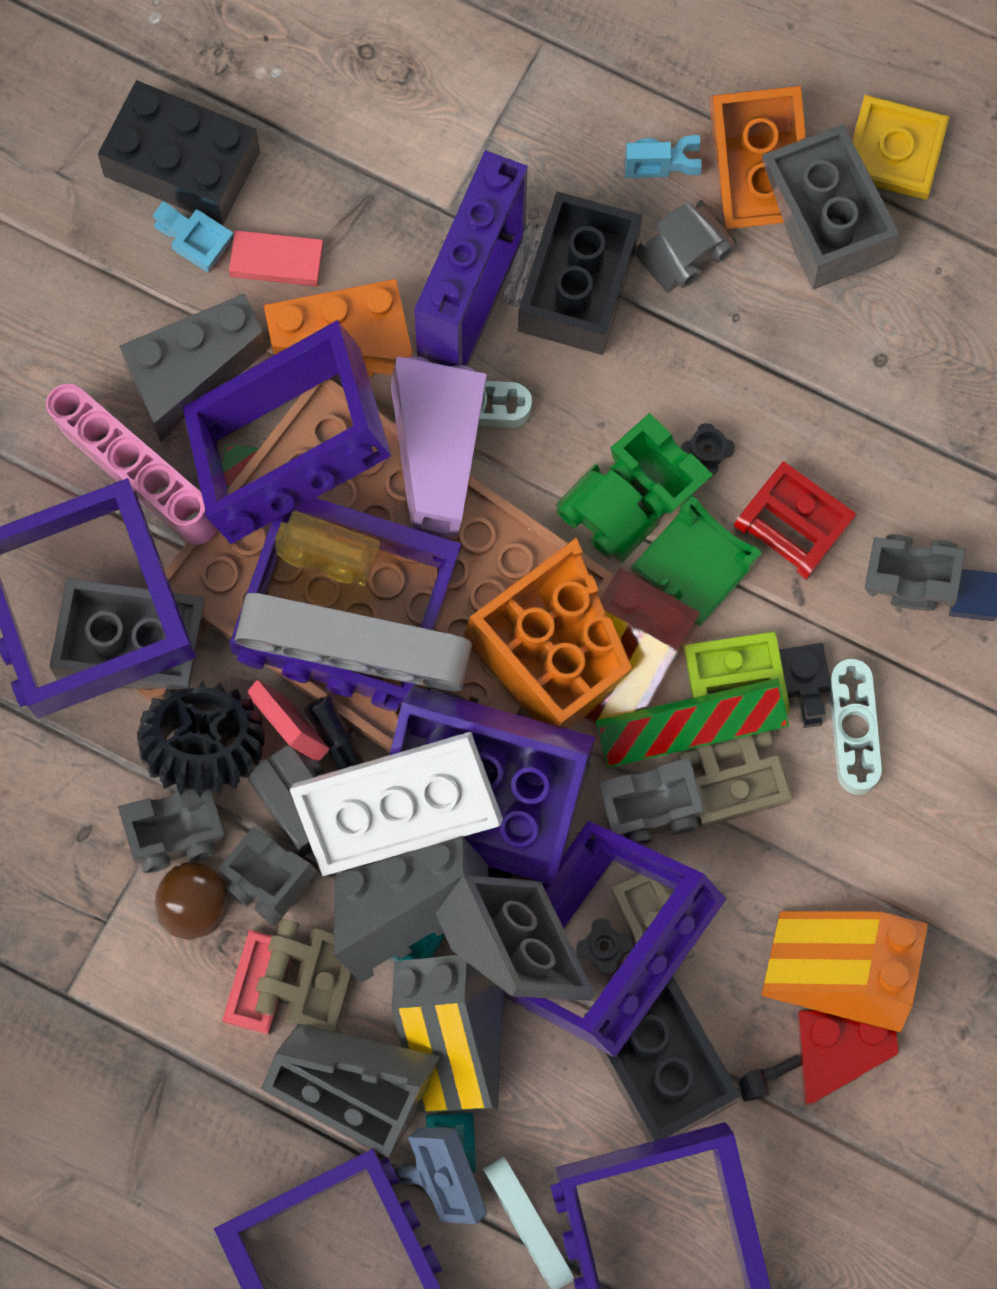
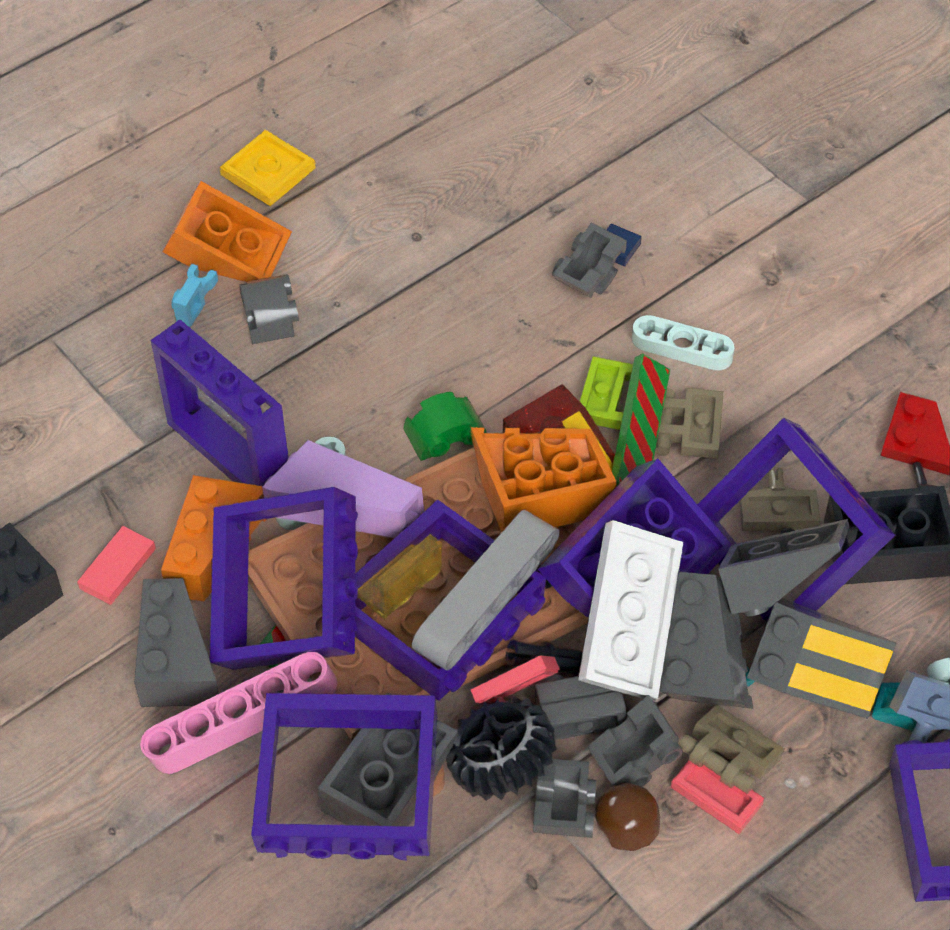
camera: 65 degrees left, 20 degrees down
(196, 238) = (66, 607): medium azure plate -> none
(351, 1083) = (836, 739): dark grey wedge -> none
(579, 273) = (267, 359): black brick -> none
(653, 802) = (691, 461): dark grey cylinder -> none
(657, 466) = (441, 373): green cylinder -> none
(696, 560) = (509, 381): green piece -> none
(709, 436) = (430, 350): black plate -> none
(803, 508) = (507, 311): red plate -> none
(805, 678) = (627, 349): black plate -> none
(830, 207) = (295, 209): dark grey slope -> none
(847, 964) = (864, 398): orange slope -> none

